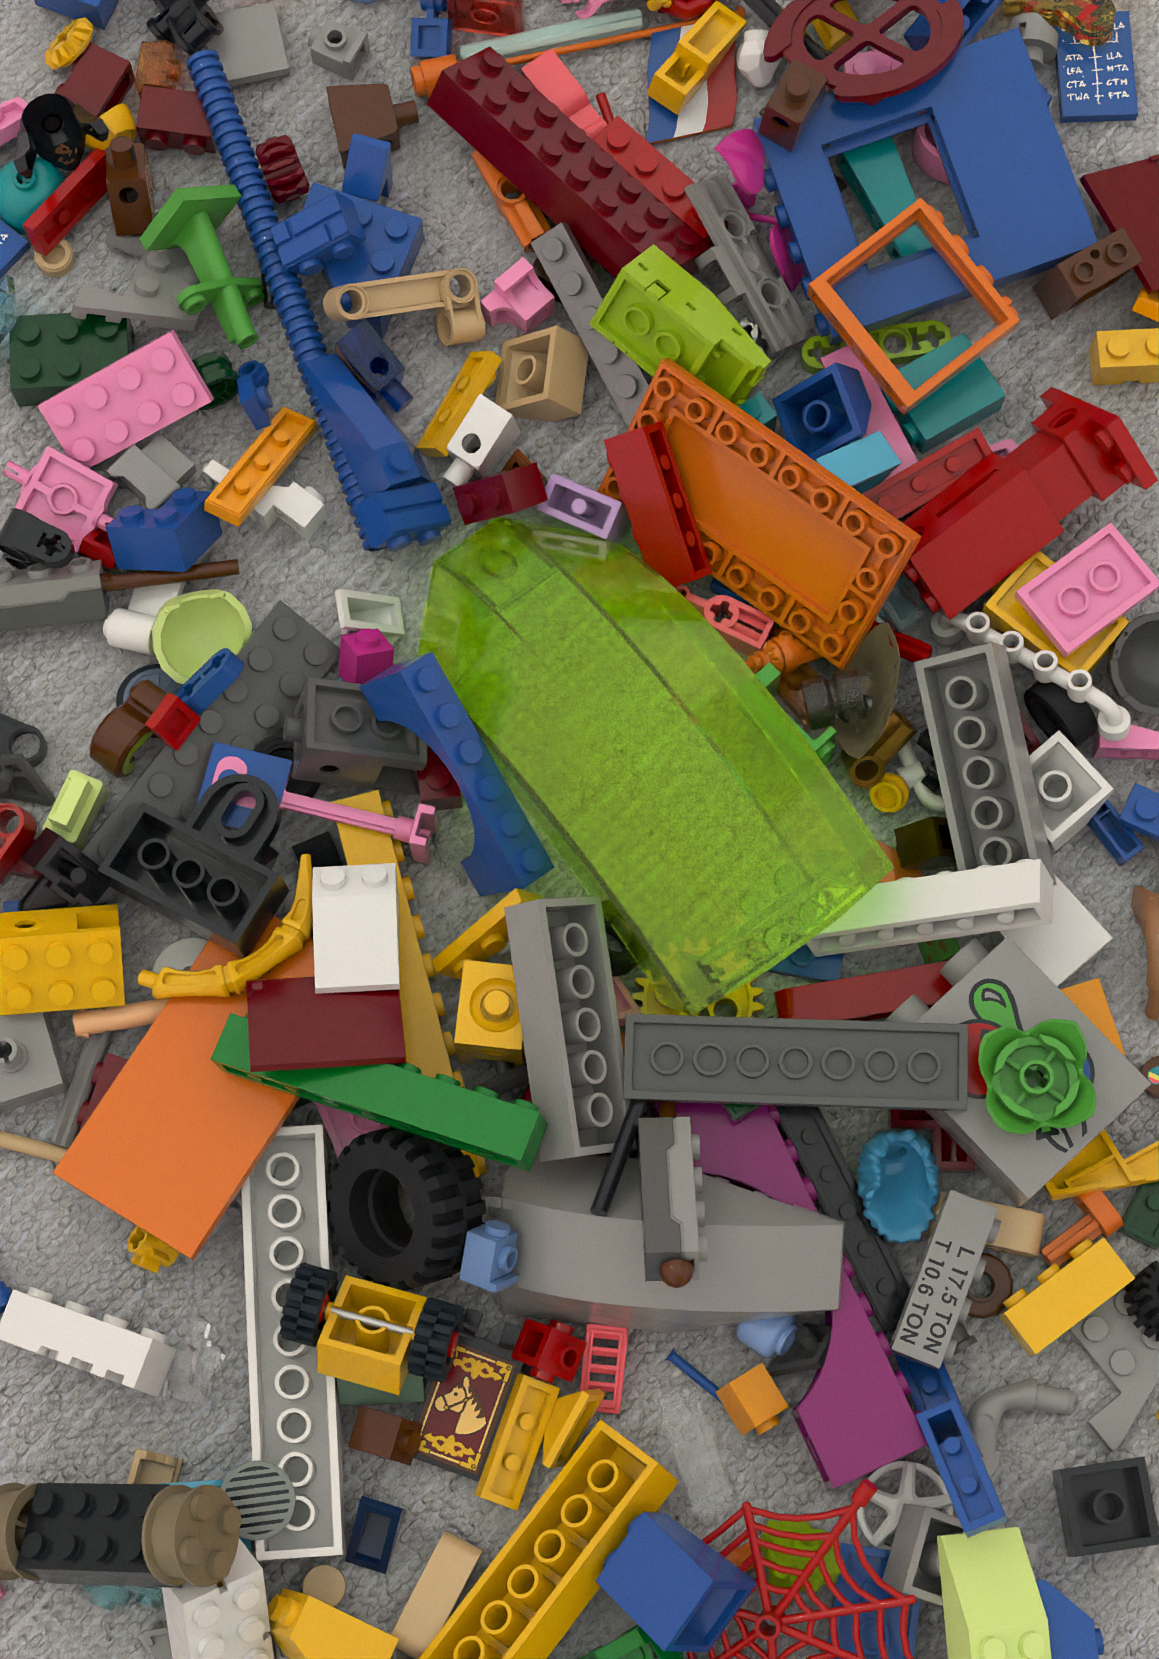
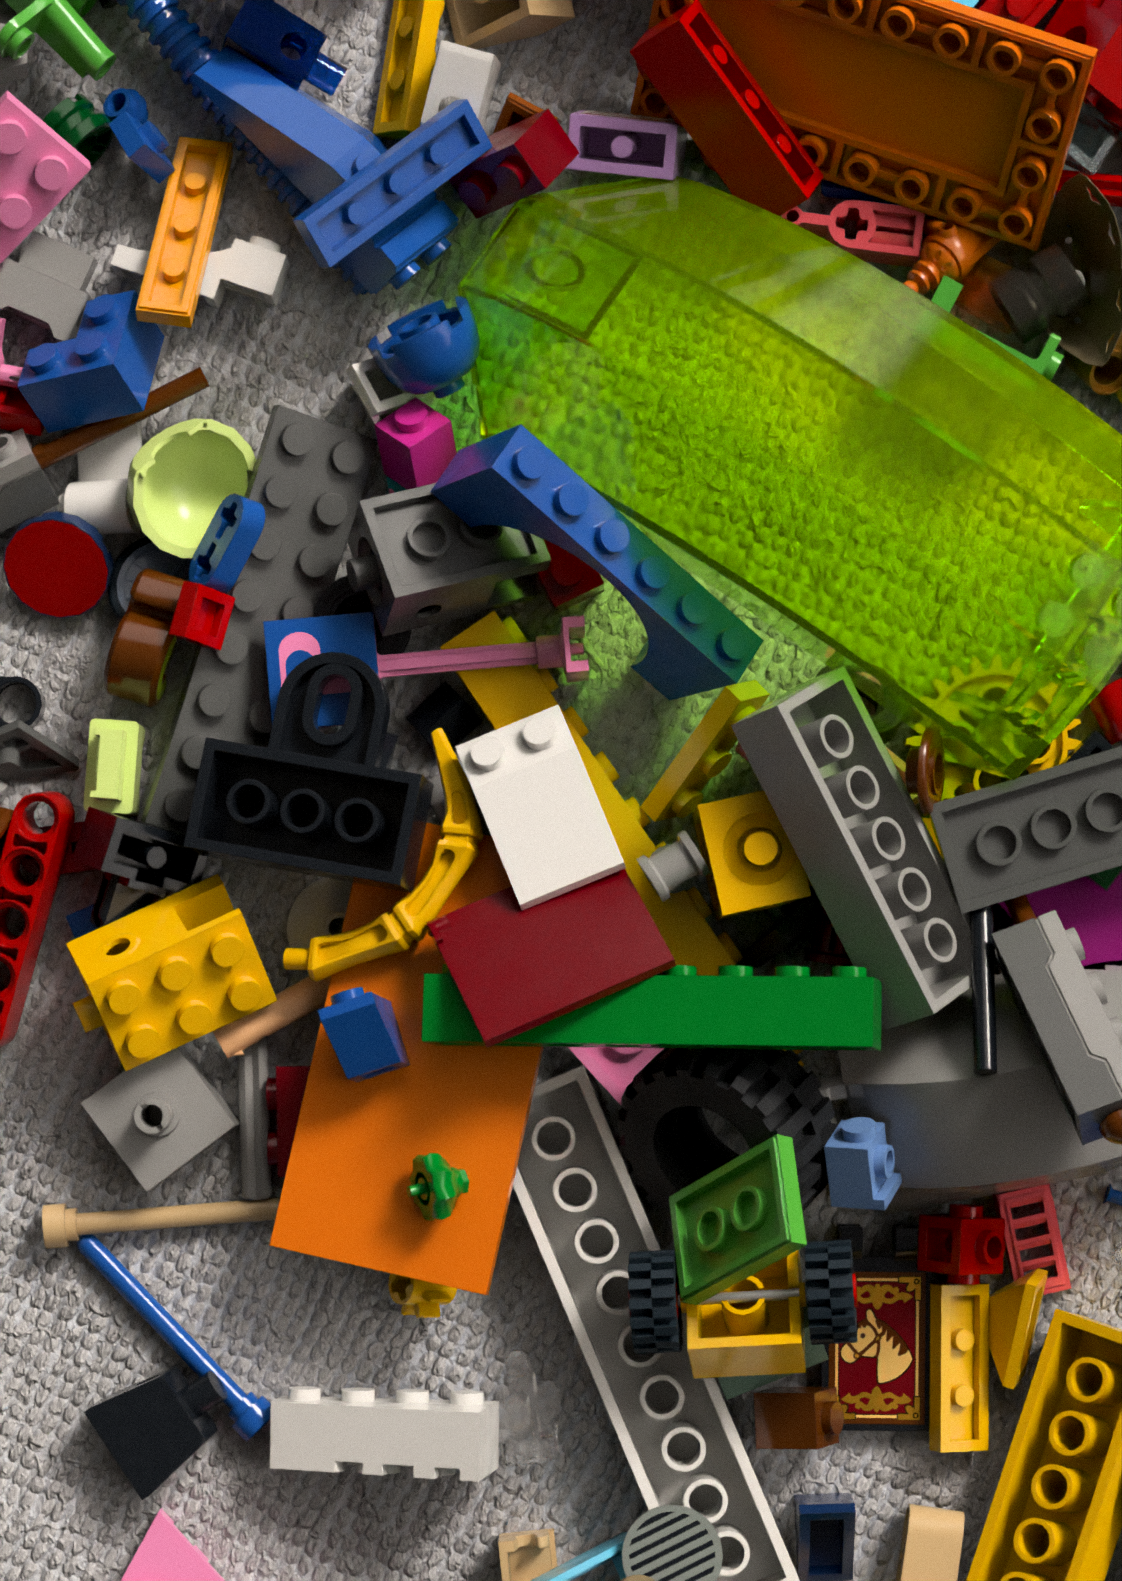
camera: 15 degrees left, 10 degrees up
(90, 659) = (58, 565): none -> red tile
(172, 1041) = (364, 1034): none -> blue slope
(183, 1166) = (436, 1186): none -> green piece
(385, 1260) = (737, 1220): none -> bright green tile
(397, 598) = (429, 349): none -> blue cylinder
(410, 474) = (392, 183): none -> blue plate
(434, 1003) = (673, 866): none -> light grey connector
(634, 989) = (926, 770): none -> reddish brown piece

